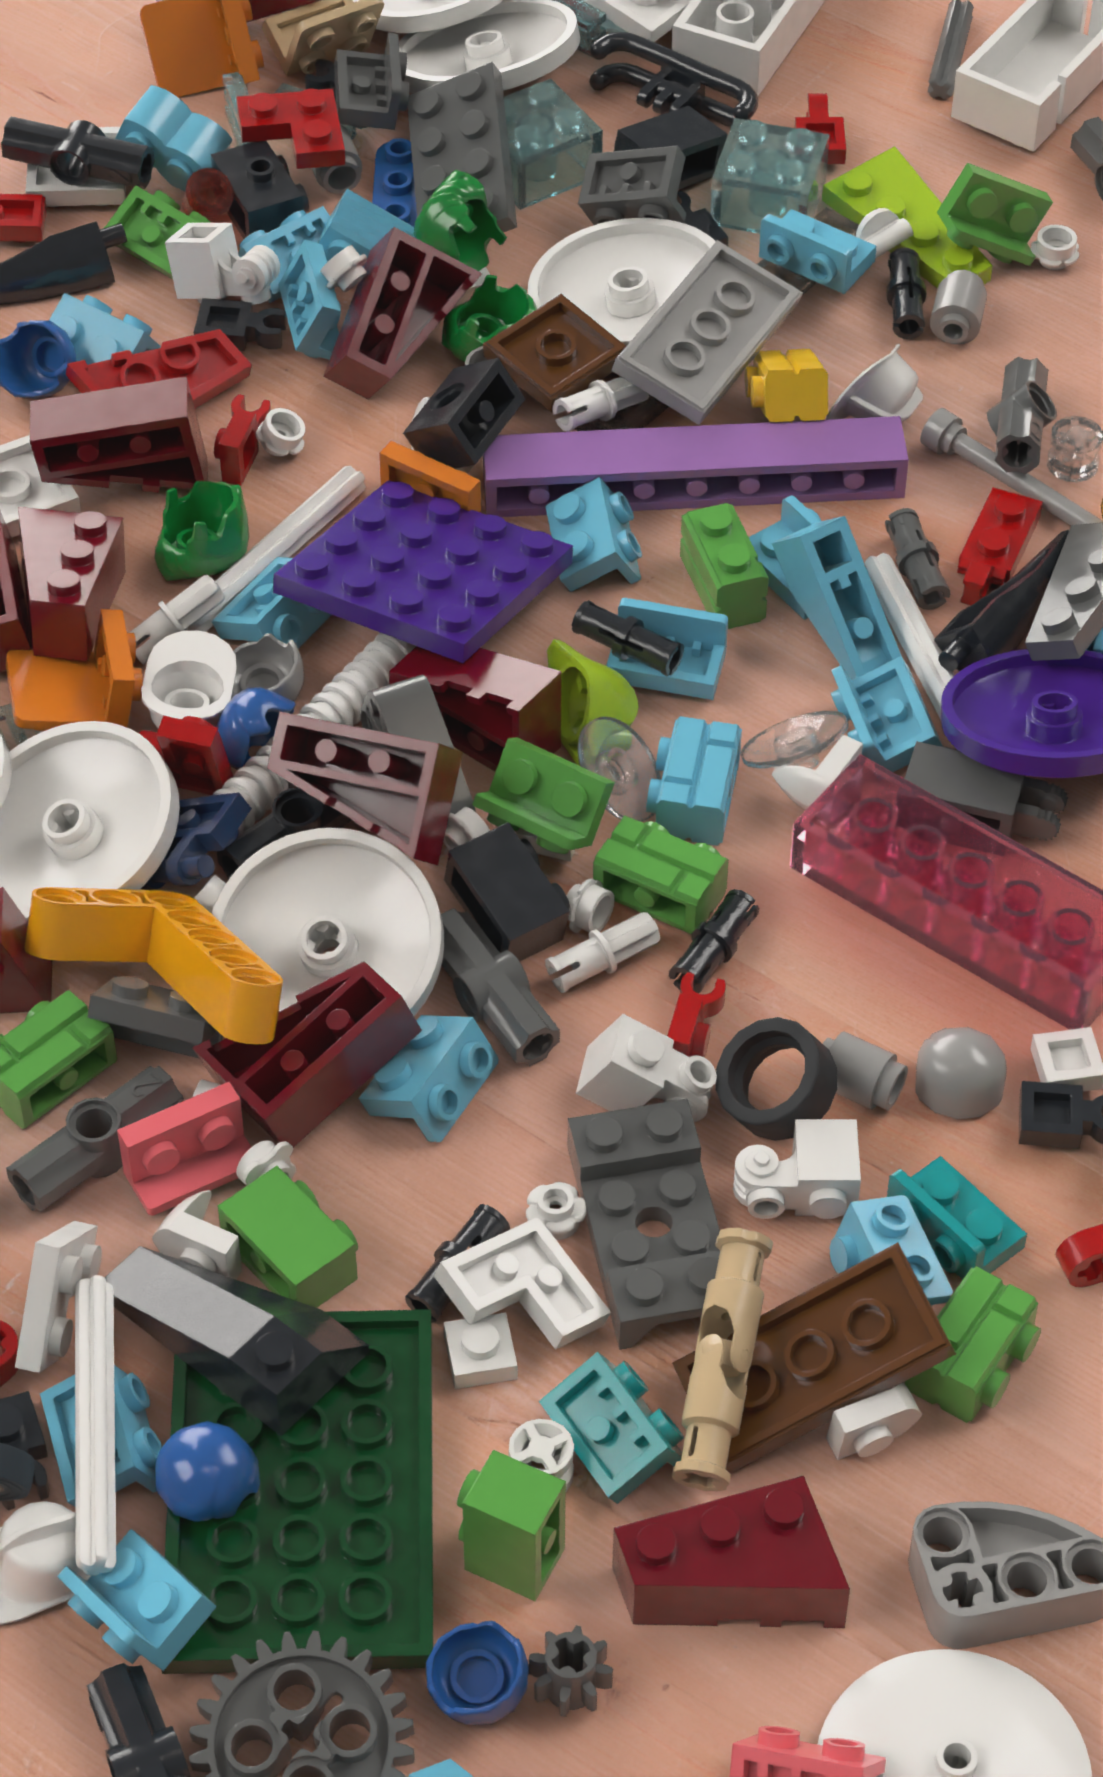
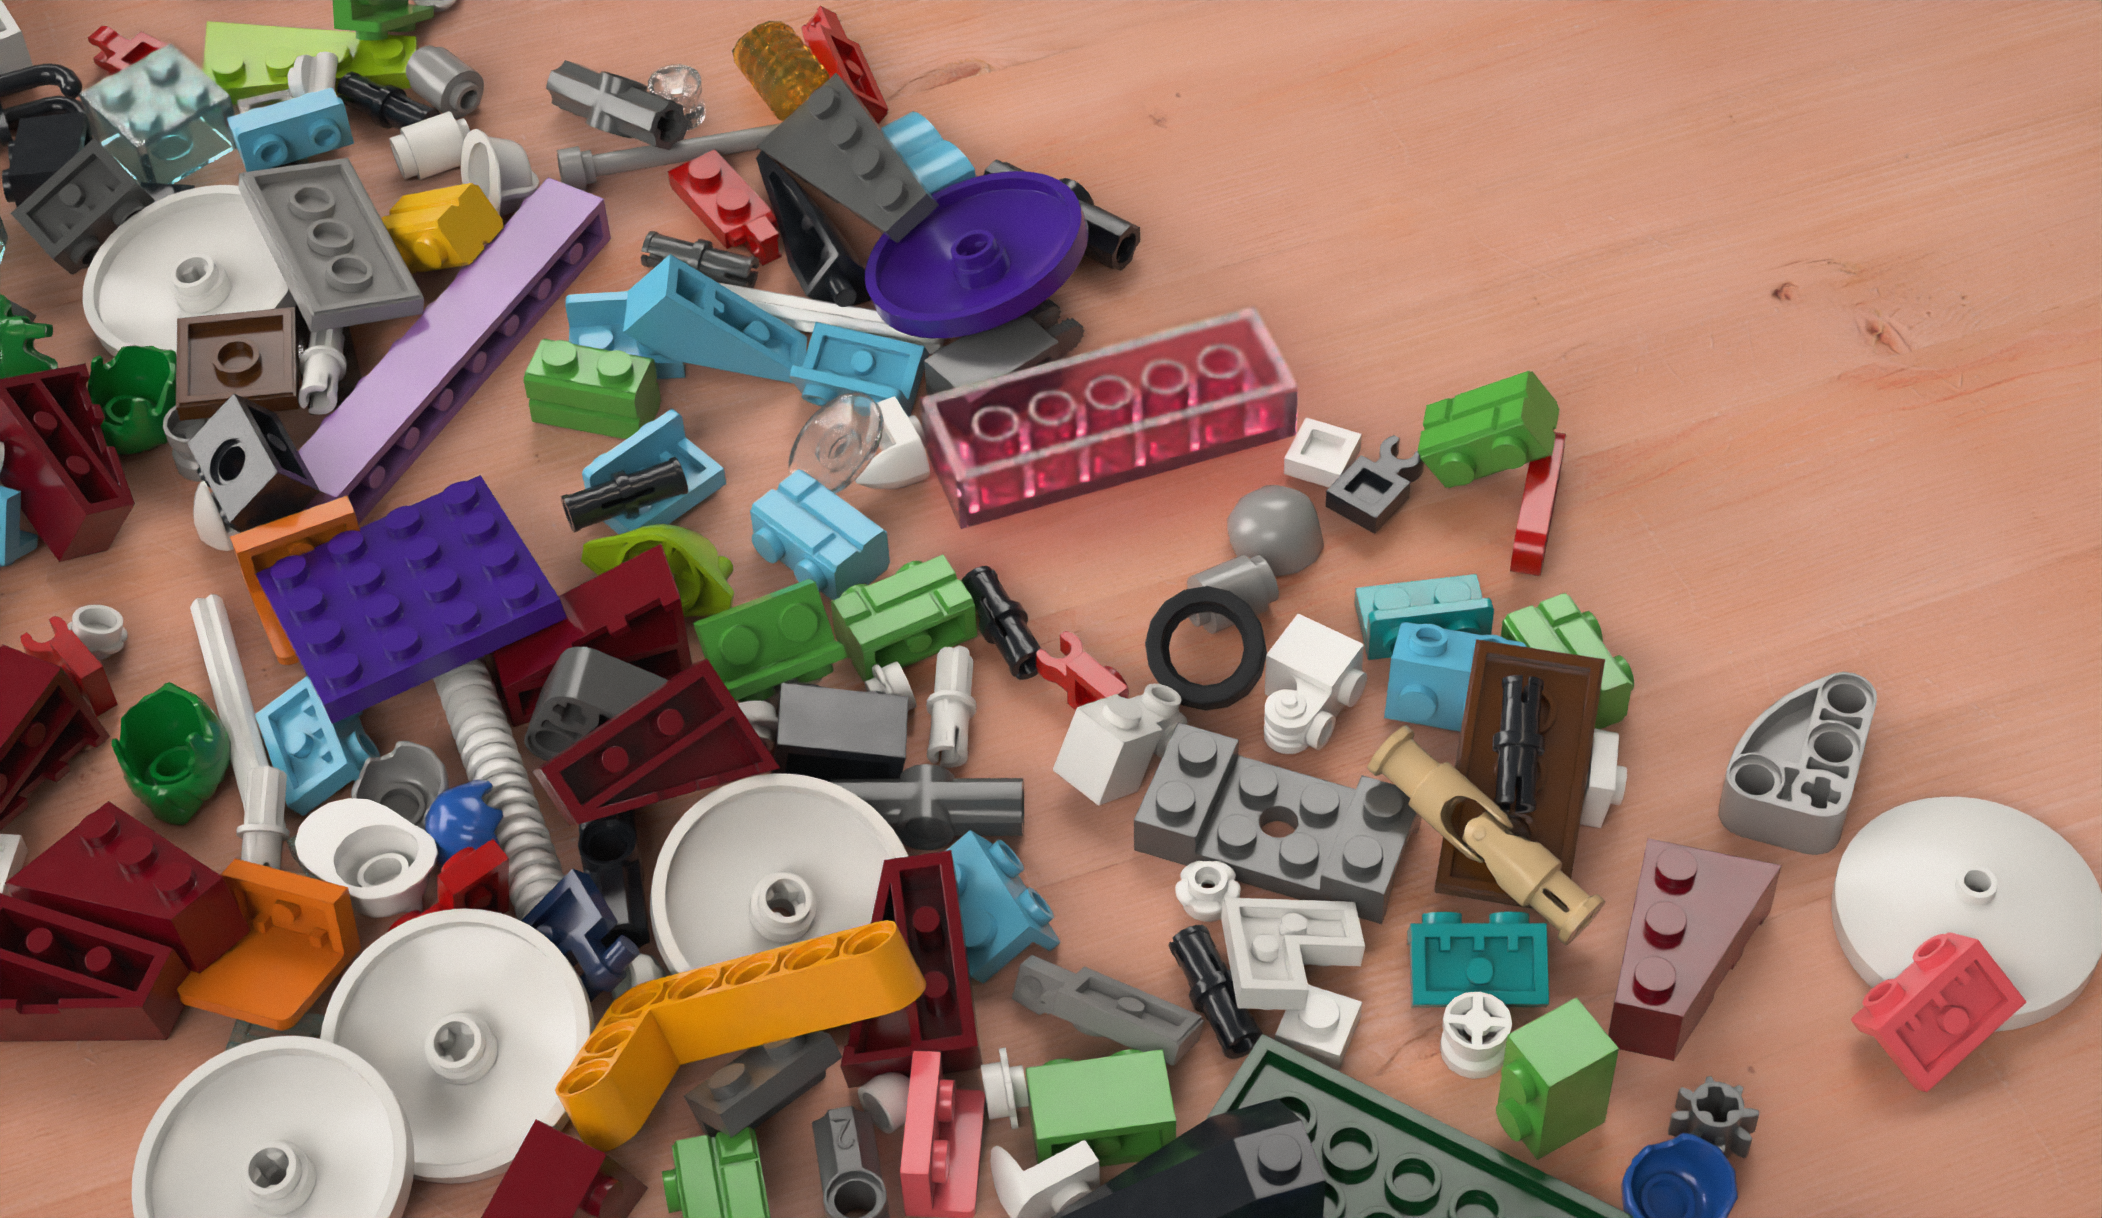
camera: 55 degrees left, 0 degrees up
(387, 1204) = (1107, 1008): none -> light grey hinge
(600, 533) = (445, 453): medium azure bracket -> none
(621, 756) = (749, 574): clear dish -> none
(819, 1330) = (1519, 743): none -> black pin
(878, 332) = (429, 146): none -> white brick

